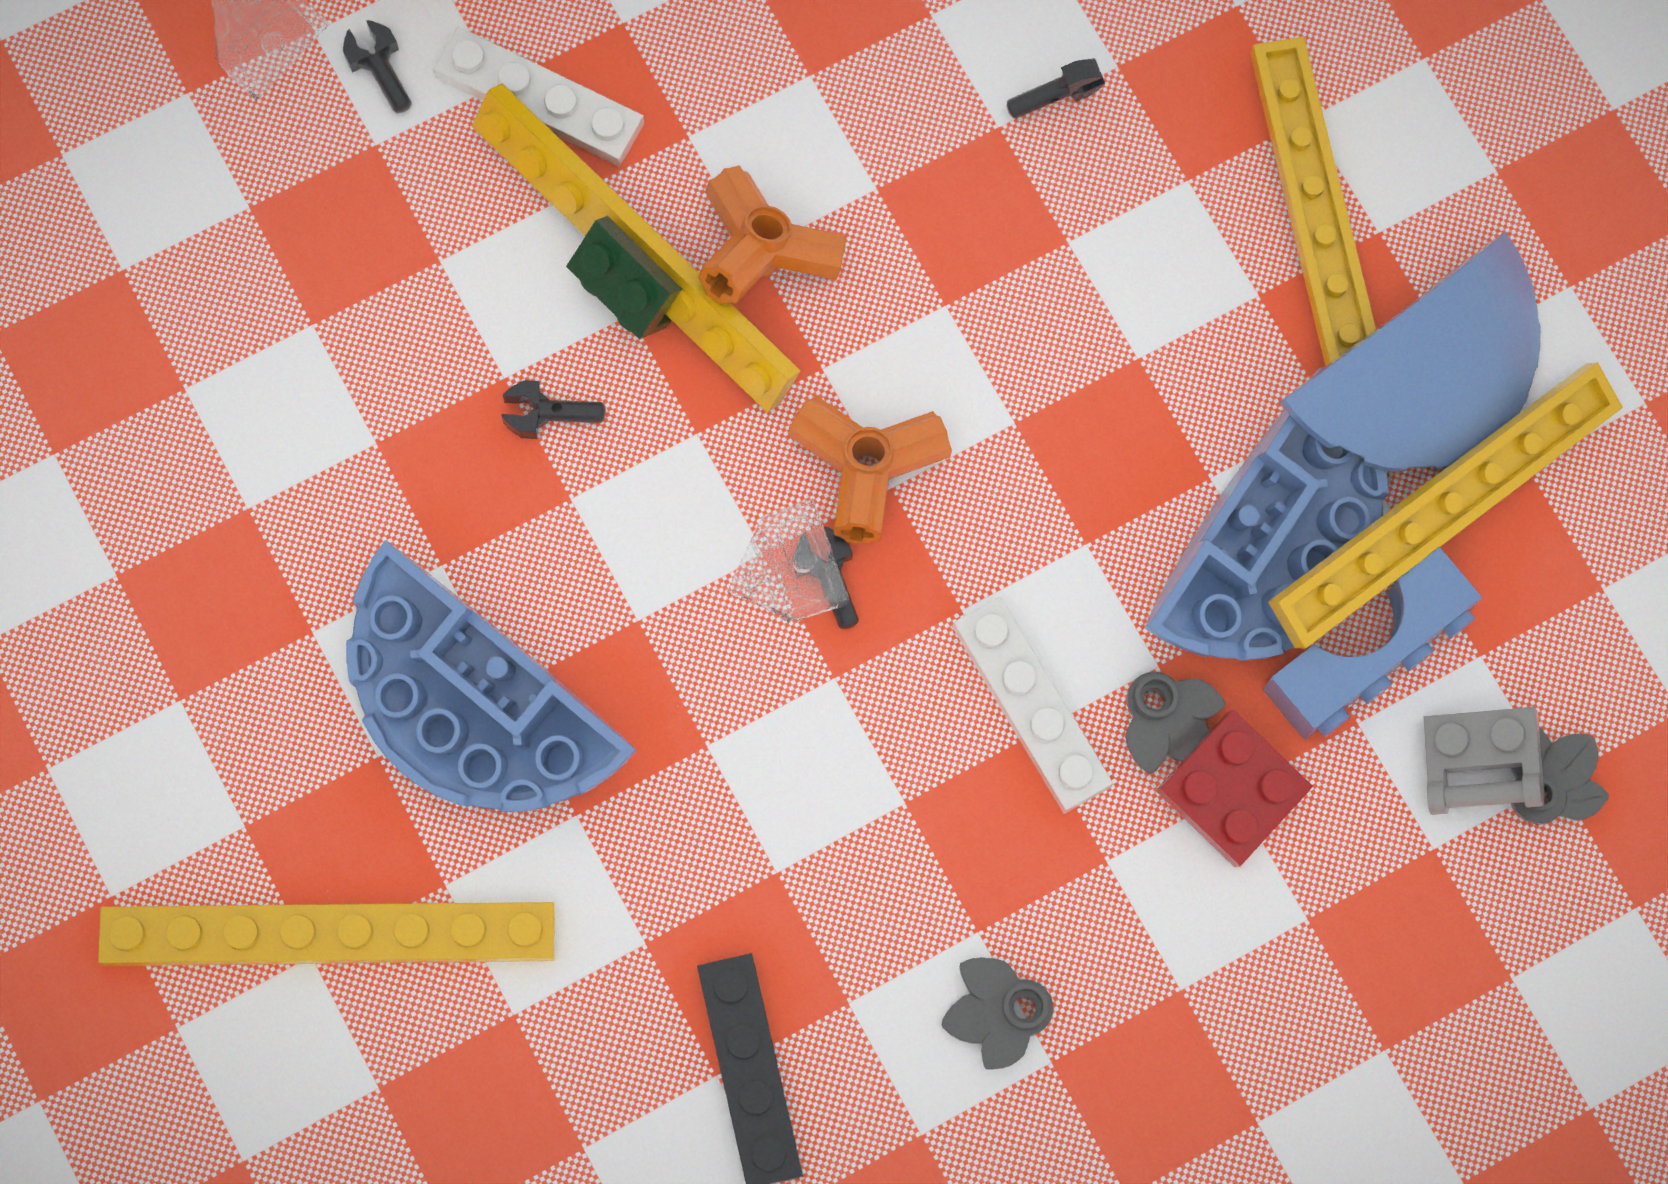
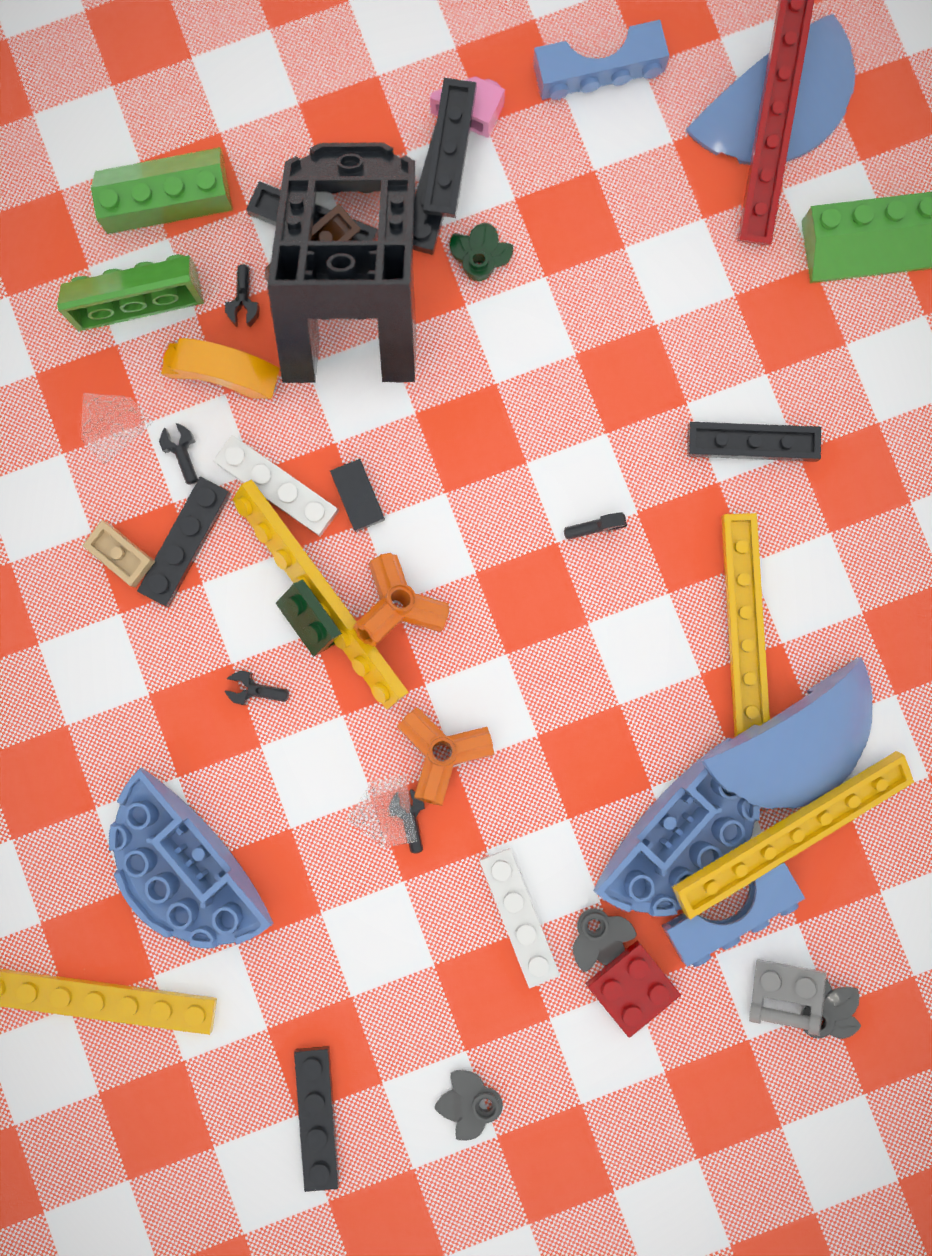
camera: 15 degrees right, 10 degrees up
(301, 226) = (118, 553): none -> tan plate
(402, 200) = (184, 542): none -> black plate
(671, 94) = (357, 495): none -> black tile

